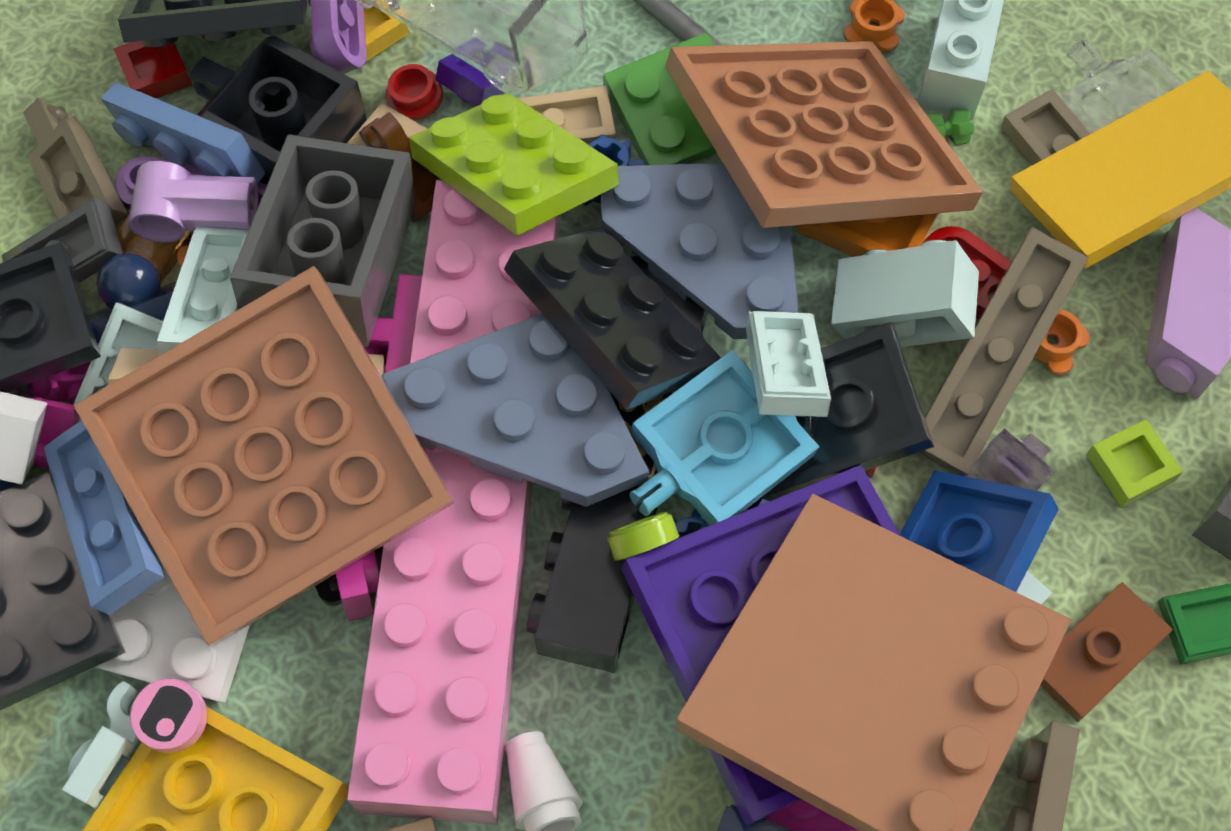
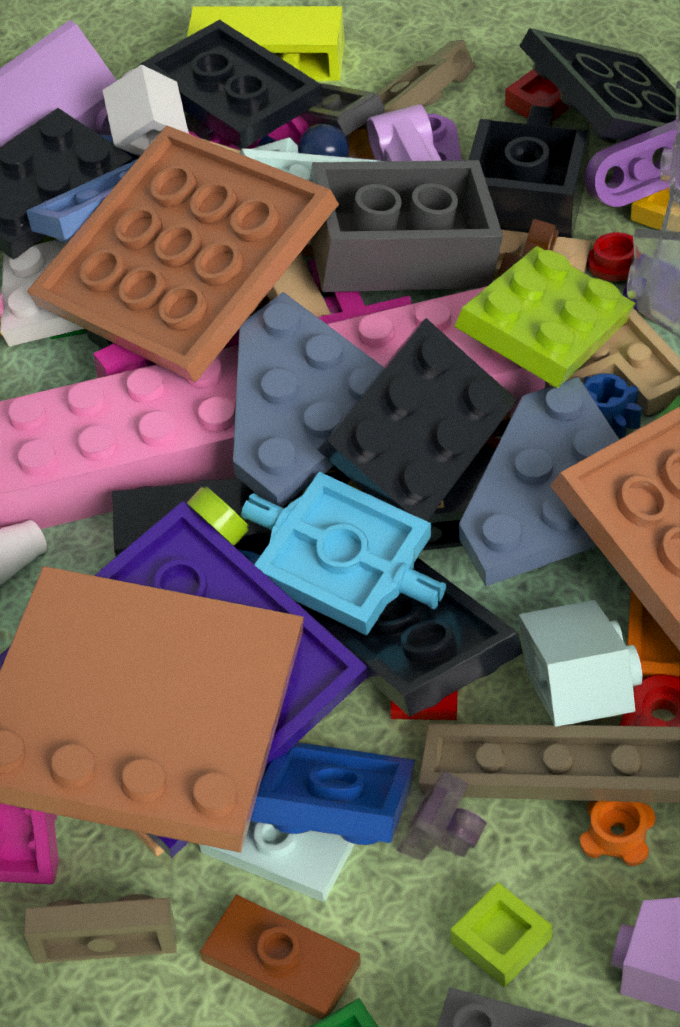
camera: 75 degrees right, 15 degrees down
(180, 134) = (476, 103): medium blue plate -> none
(787, 364) = (422, 553): light aqua plate -> none

